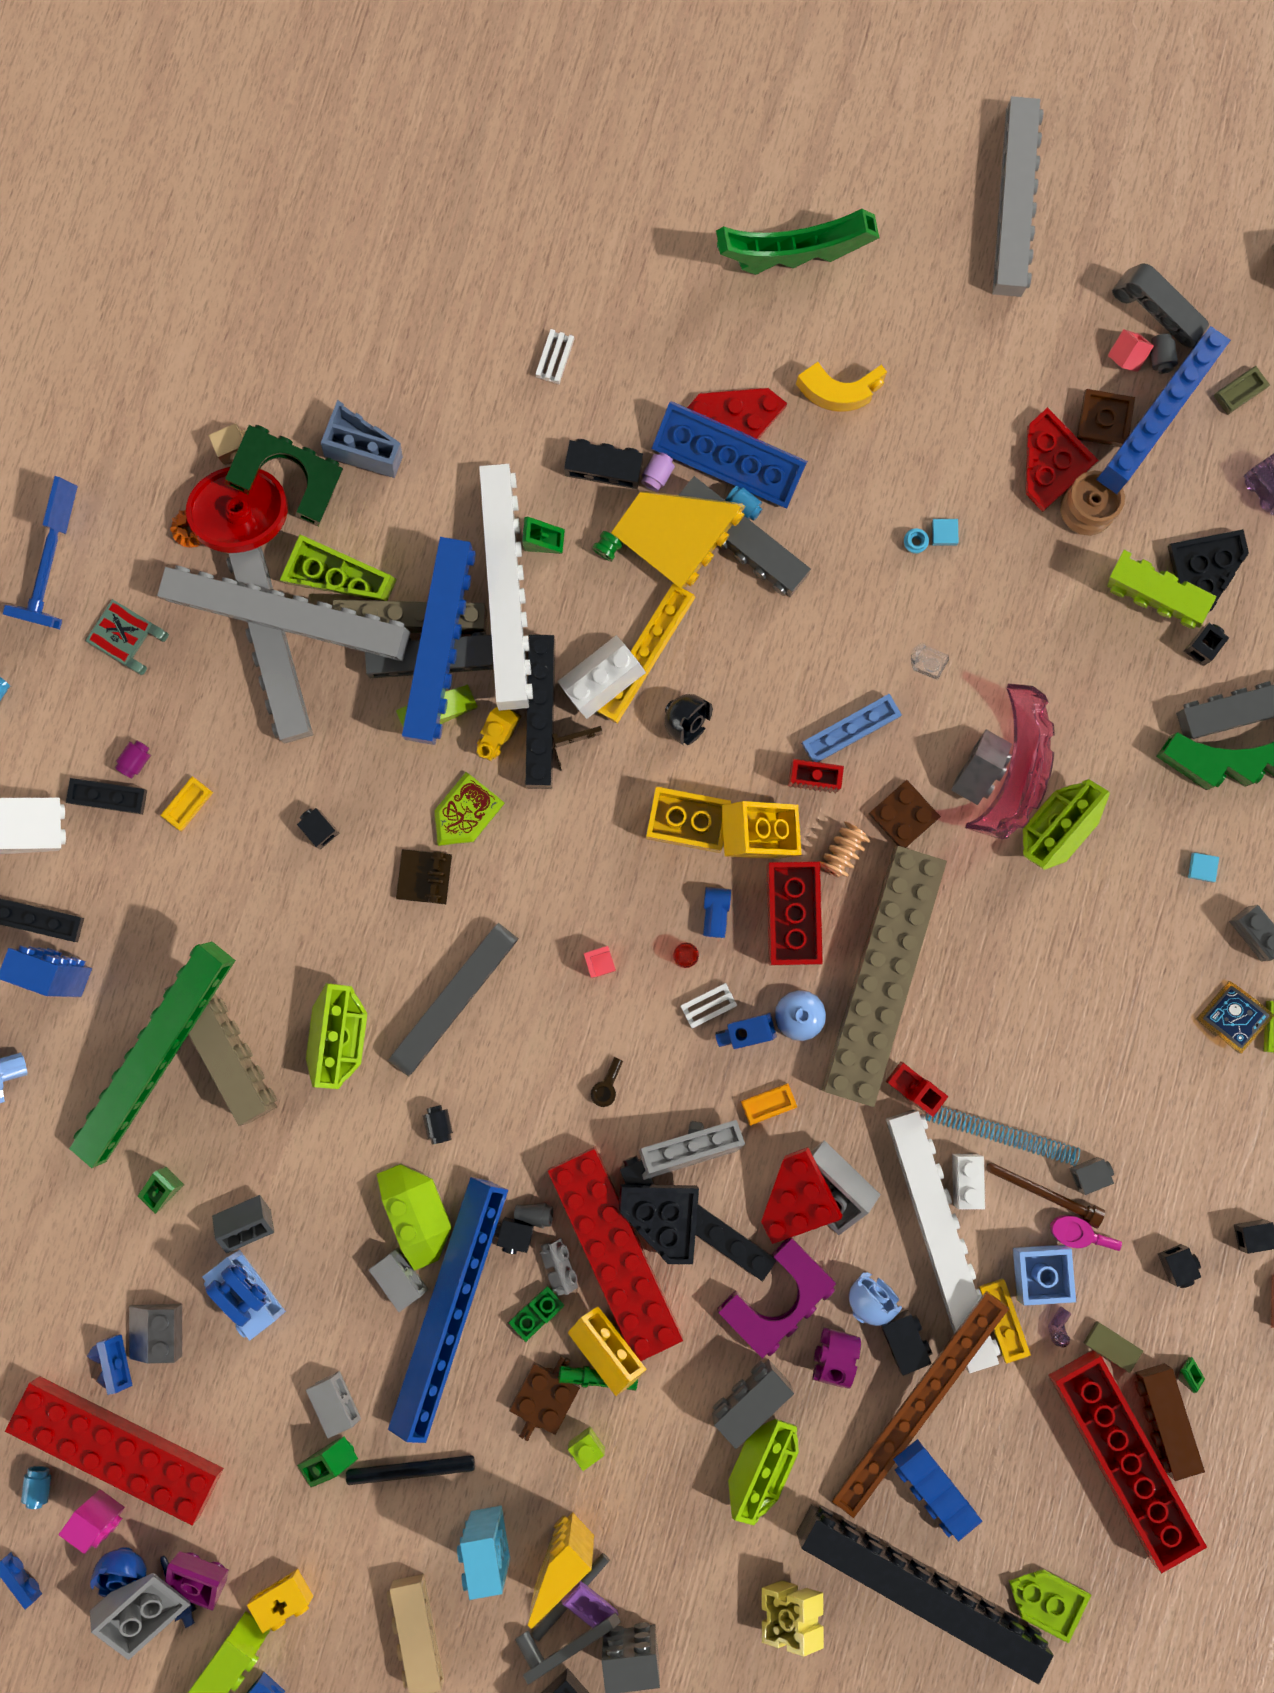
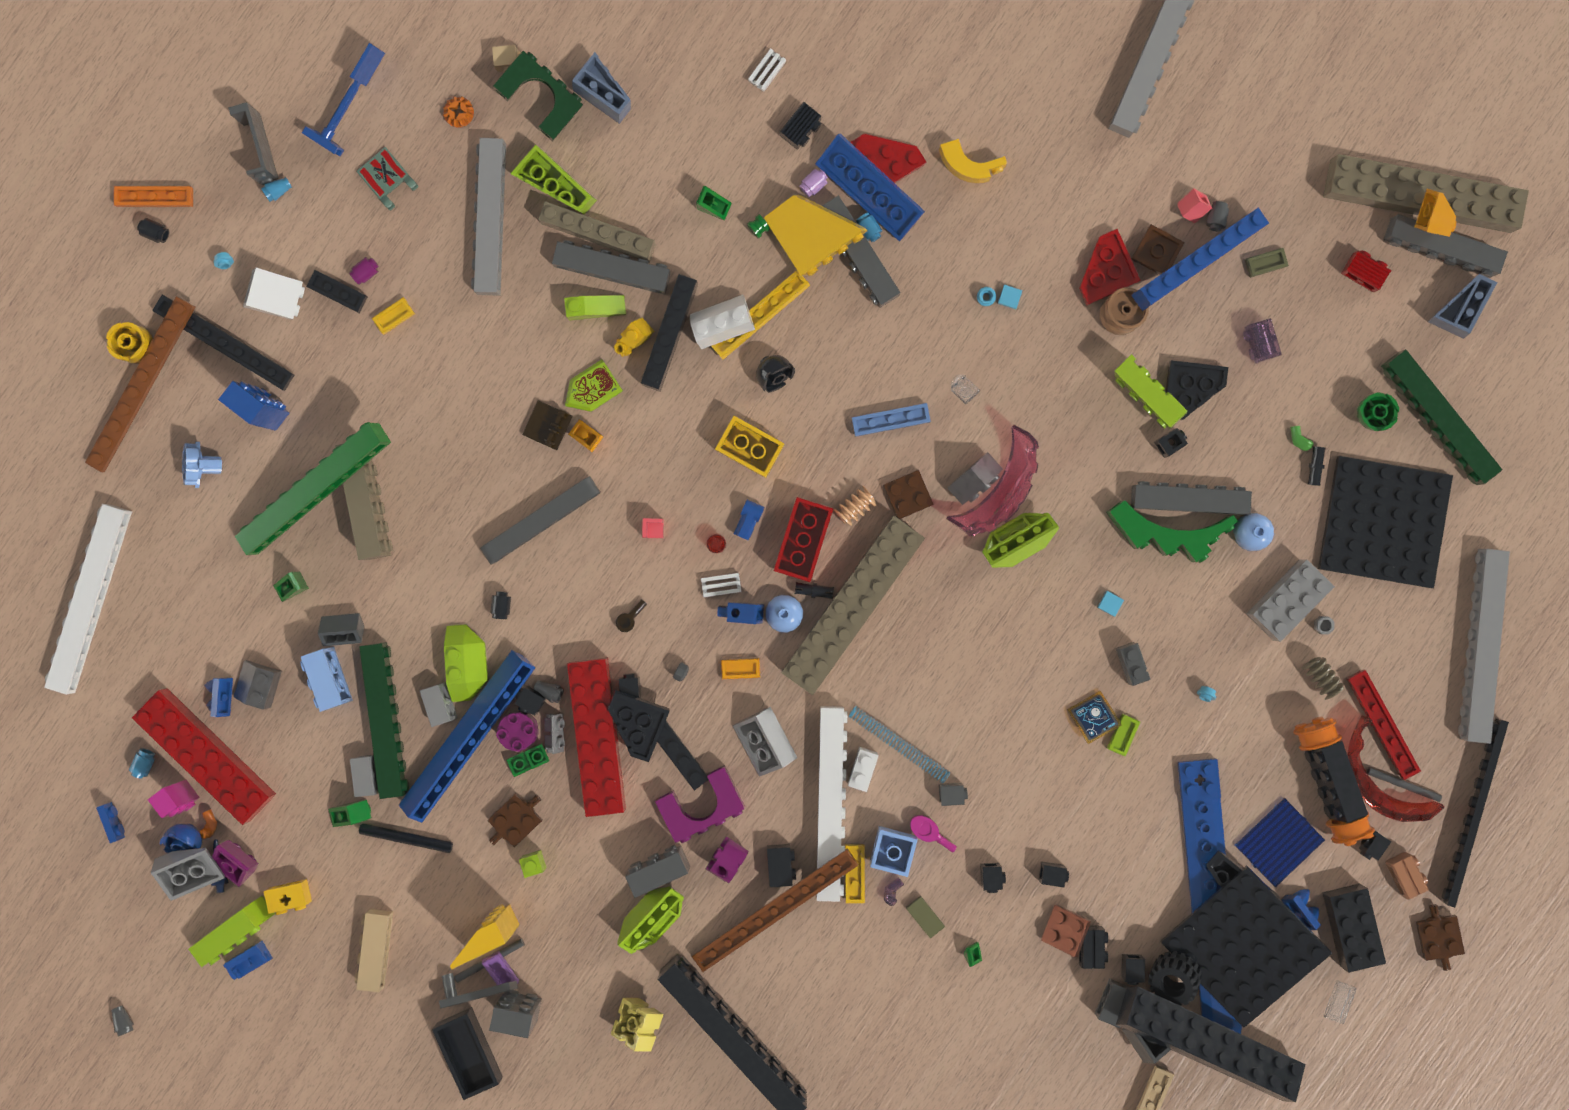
camera: 25 degrees right, 5 degrees up
(150, 1540) = (210, 826): none -> orange arm
(233, 520) = (490, 117): red dish -> none
(252, 1295) = (330, 680): blue brick -> none
(283, 613) = (505, 200): light grey brick -> none
(317, 827) = (481, 364): black brick -> none
(334, 1325) = (383, 720): none -> dark green brick
(335, 1036) = (447, 519): lime wedge -> none
(437, 641) = (610, 256): blue brick -> none
(477, 873) = (586, 435): none -> light orange slope
(484, 1553) = (437, 909): medium azure brick -> none
(504, 587) = (672, 232): white brick -> none
(511, 1280) = (517, 731): none -> magenta brick
(584, 1377) = (558, 819): green pin -> none
(586, 734) = (675, 359): dark brown piece -> none
(603, 463) = (776, 163): black brick -> none
(606, 1351) = (568, 801): yellow brick -> none
(619, 408) = (800, 126): none -> black brick
(691, 1149) = (673, 682): light grey panel -> none
(761, 830) = (799, 472): yellow brick -> none
(793, 248) = (973, 46): green arch -> none
(799, 1199) = (738, 741): red plate -> none
(815, 776) = (852, 445): red brick -> none
(828, 973) = (814, 590): none -> black pin
(873, 1301) = (767, 829): light blue cylinder -> none
(917, 1089) = (848, 692): red brick -> none
(936, 1488) = (767, 973): blue brick -> none
(1049, 1602) = (819, 1074): lime tile -> none
(1092, 1215) = (942, 821): reddish brown piece -> none
(1127, 1461) = (906, 996): red brick -> none
(1163, 302) = (1230, 177): dark grey beam -> none
(1169, 1422) = (946, 980): reddish brown brick -> none

